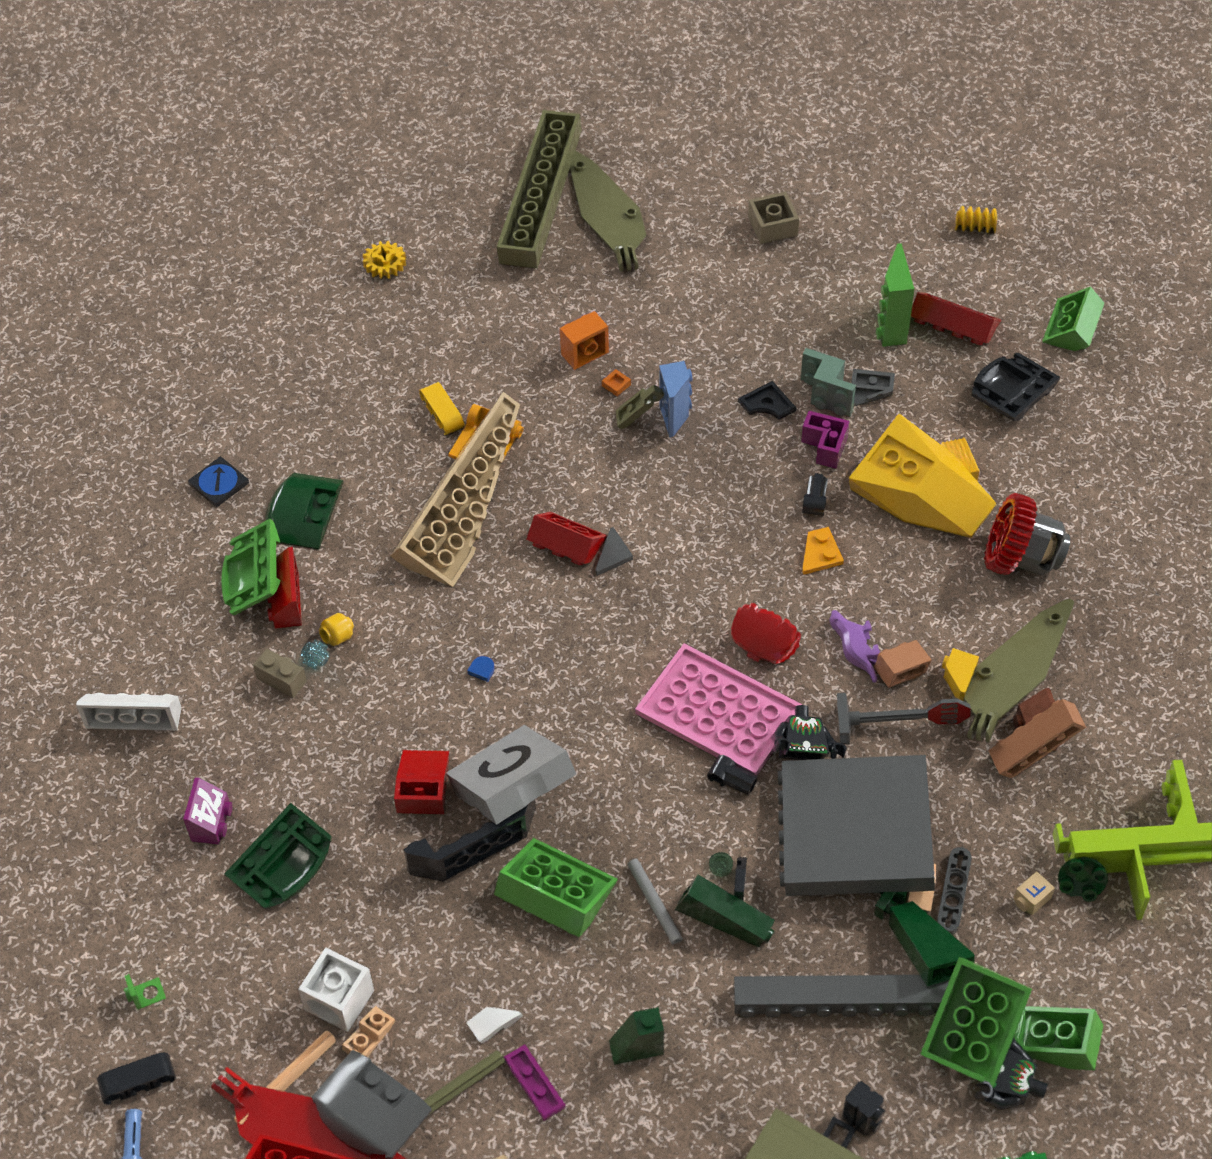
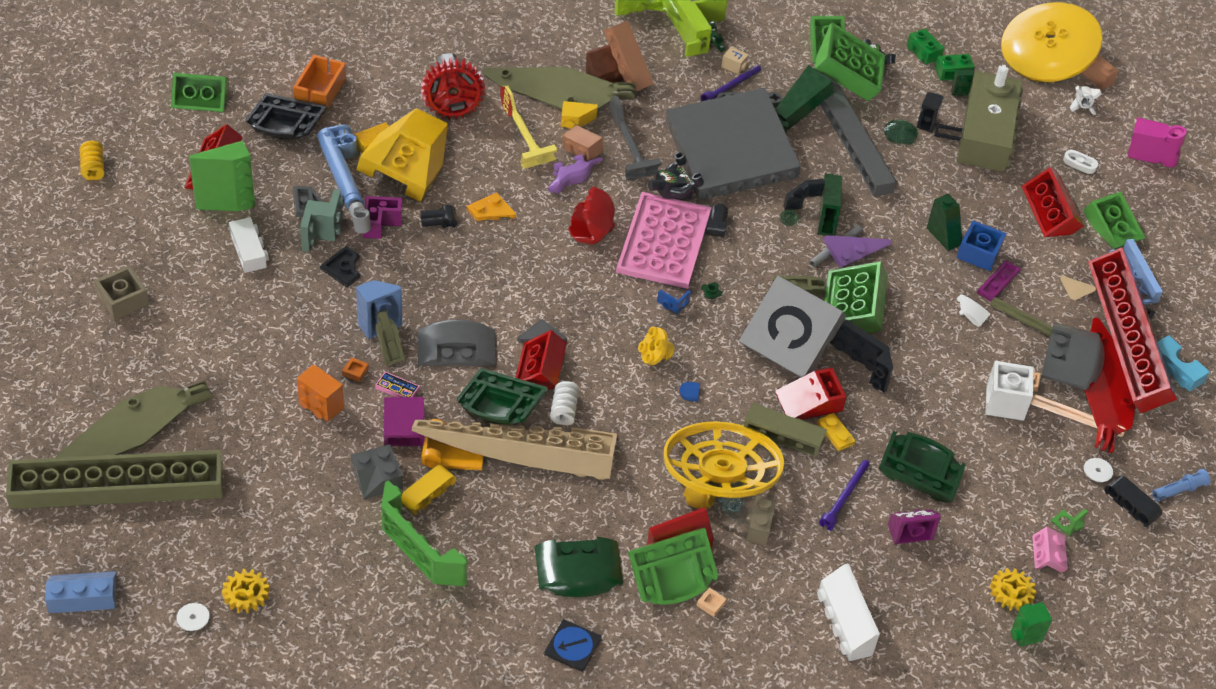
camera: 115 degrees left, 5 degrees down
(29, 874) = (1031, 624): none -> green brick
(87, 890) = (1012, 589): none -> yellow gear
(115, 952) = (1050, 550): none -> bright pink bracket
(193, 1055) = (1103, 467): none -> white piece
(208, 603) = (711, 602): none -> light nougat plate
(256, 742) = (830, 517): none -> dark purple piece
(369, 647) = (723, 464): none -> yellow dish
(369, 794) = (836, 432): none -> yellow plate
(376, 225) = (190, 611): none -> white piece
(378, 373) = (444, 569): none -> bright green slope
(388, 738) = (786, 429): none -> olive brick
(434, 157) = (81, 592): none -> medium blue slope
(477, 372) = (374, 468): none -> dark grey slope
(503, 543) = (564, 403): none -> white piece
(530, 487) = (500, 397): none -> dark green slope
(537, 404) = (399, 418): none -> magenta brick
(546, 648) = (656, 346): none -> yellow plate
(583, 414) = (396, 386): none -> tile
(591, 1072) = (981, 245): none -> blue brick
(600, 830) = (810, 284): none -> olive hinge
(611, 683) = (672, 303): none -> blue bracket
(624, 740) = (711, 290): none -> dark green plate
(625, 476) = (456, 344): none -> dark grey slope
(638, 910) = (851, 249): none -> medium lavender wing
(817, 324) = (248, 244): none -> white brick
(847, 1067) = (900, 131): none -> clear green dish
(949, 421) = (338, 148): none -> medium blue piece
(966, 839) = (709, 95): none -> dark purple piece
(986, 600) = (536, 154): none -> light yellow piece
(1063, 423) = (316, 83): none -> orange piece

